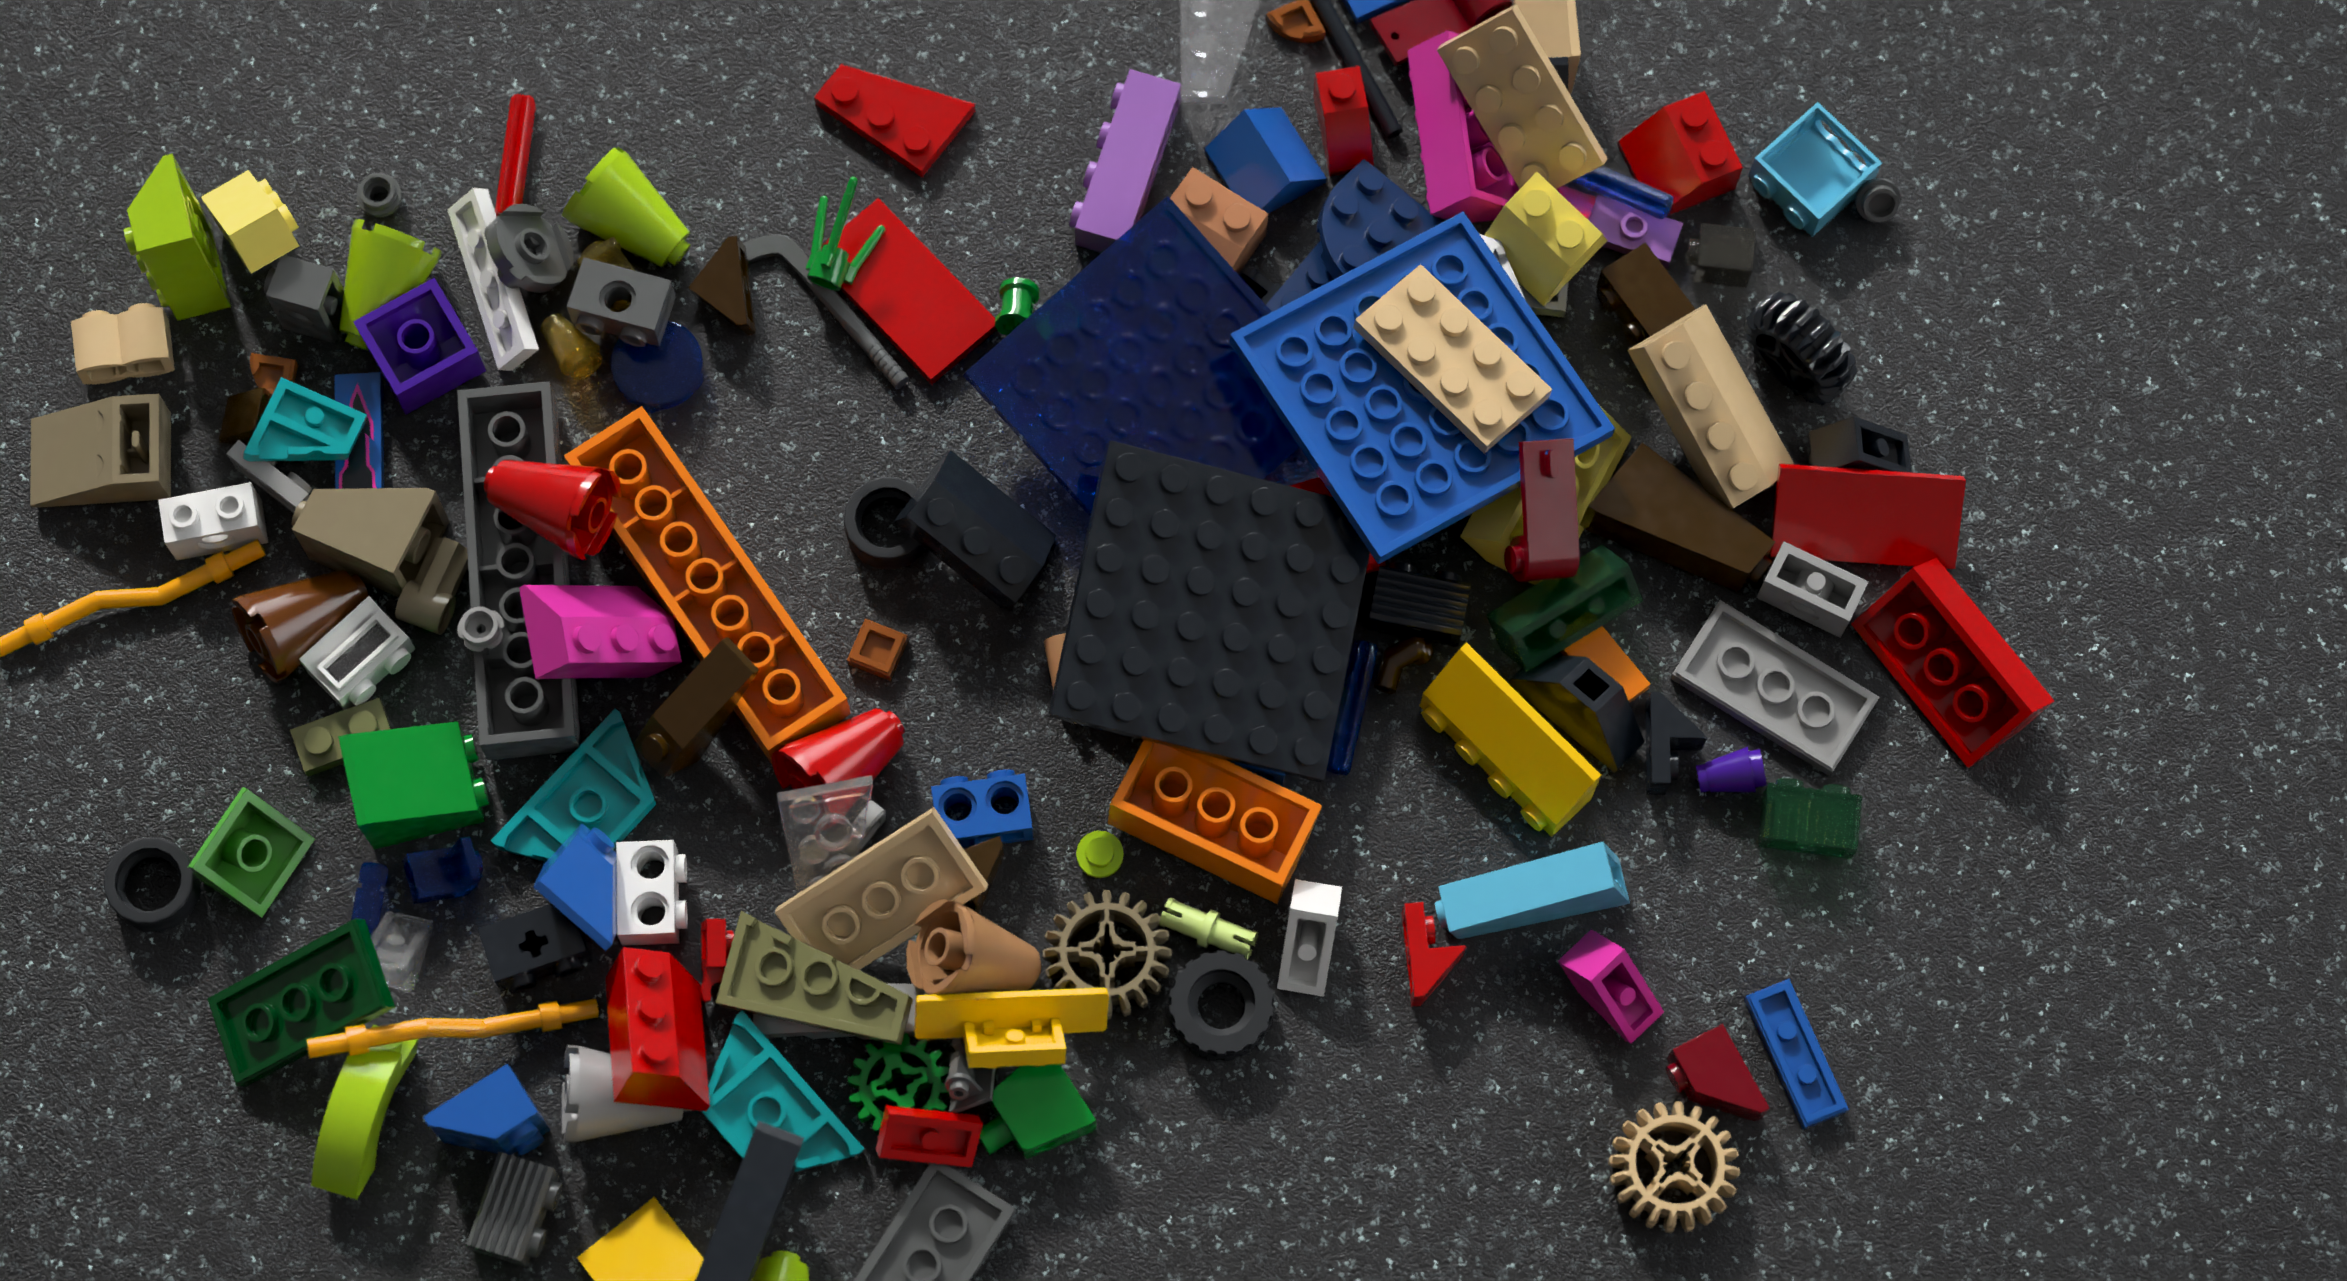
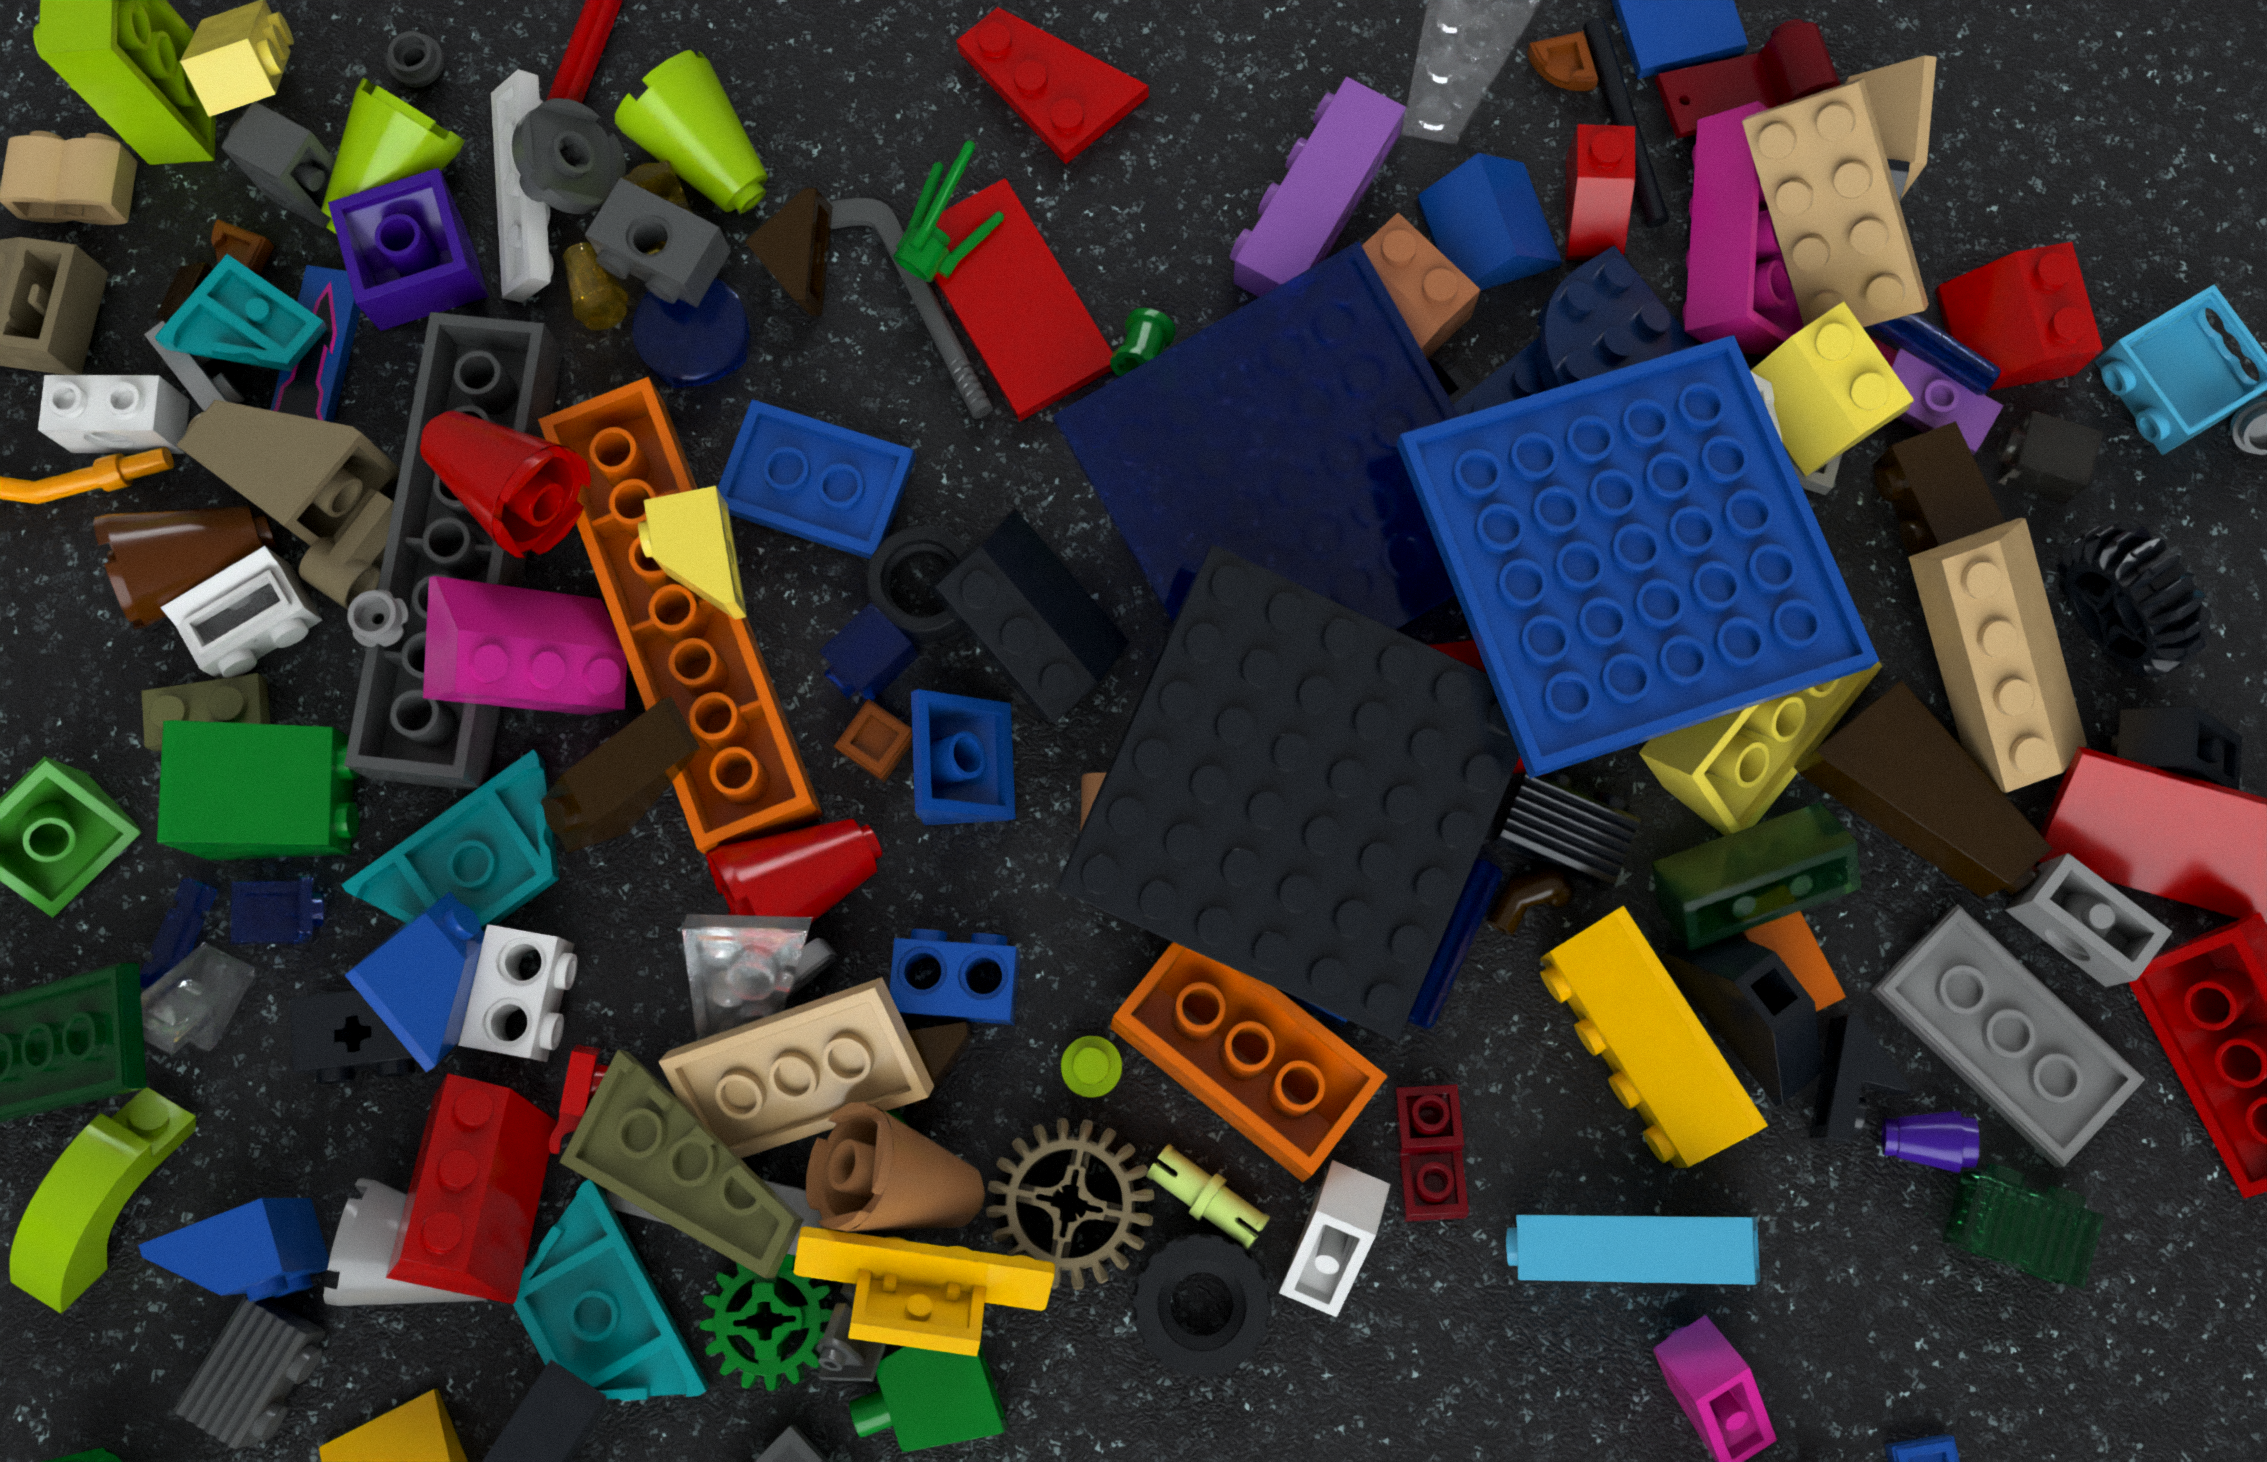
camera: 20 degrees right, 5 degrees up
(359, 1039) = (96, 1117): light orange bar -> none
(715, 525) = (695, 545): none -> light yellow slope
(783, 461) = (815, 479): none -> blue plate
(857, 585) = (867, 655): none -> clear blue brick
(929, 1136) = (784, 1404): red plate -> none
(949, 648) = (962, 759): none -> blue slope
(1368, 862) = (1431, 1153): none -> dark red slope
(1425, 965) = (1474, 1315): red slope -> none
(1452, 358) = (1684, 525): tan plate -> none
(1549, 513) = (1768, 754): dark red door -> none

